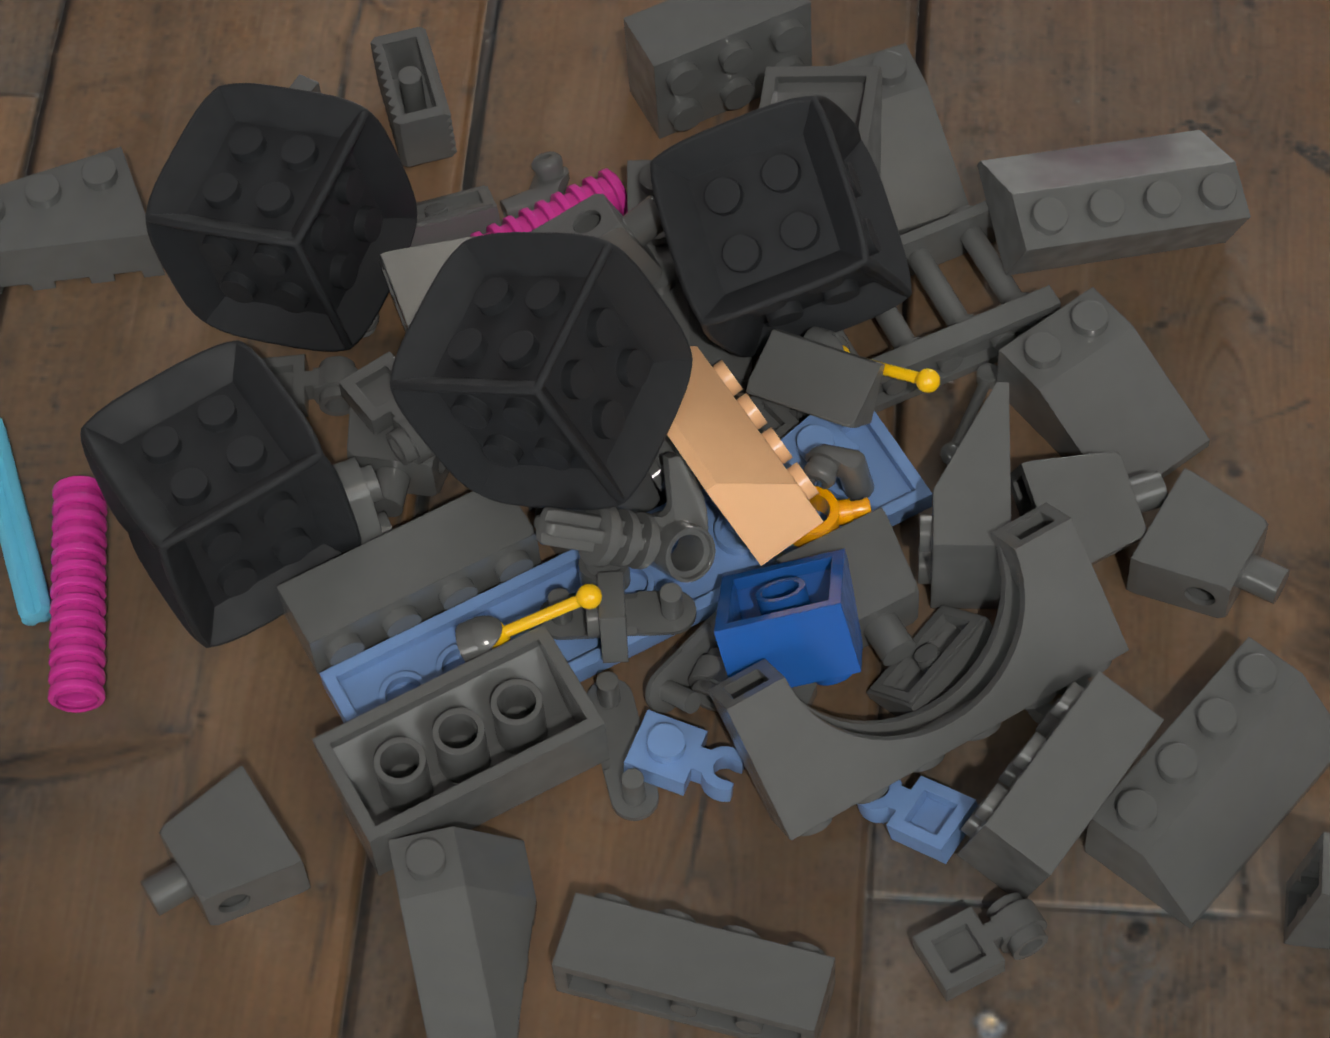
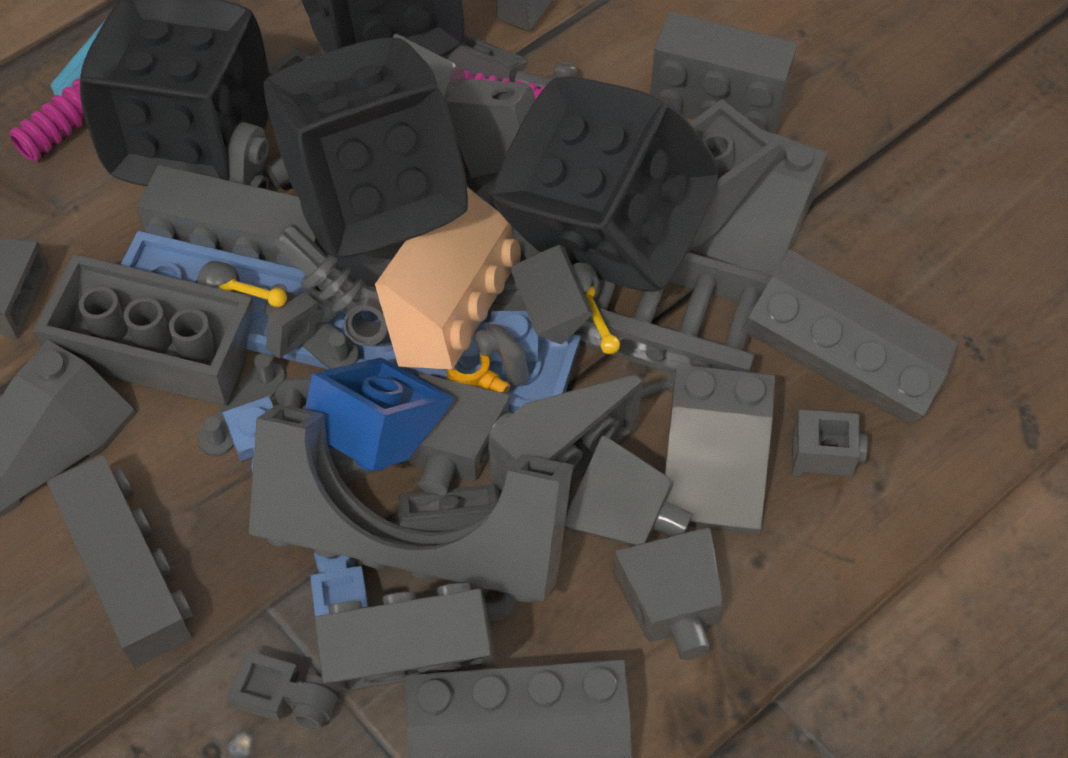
camera: 40 degrees right, 0 degrees up
(1185, 315) = (827, 443): none -> dark grey brick

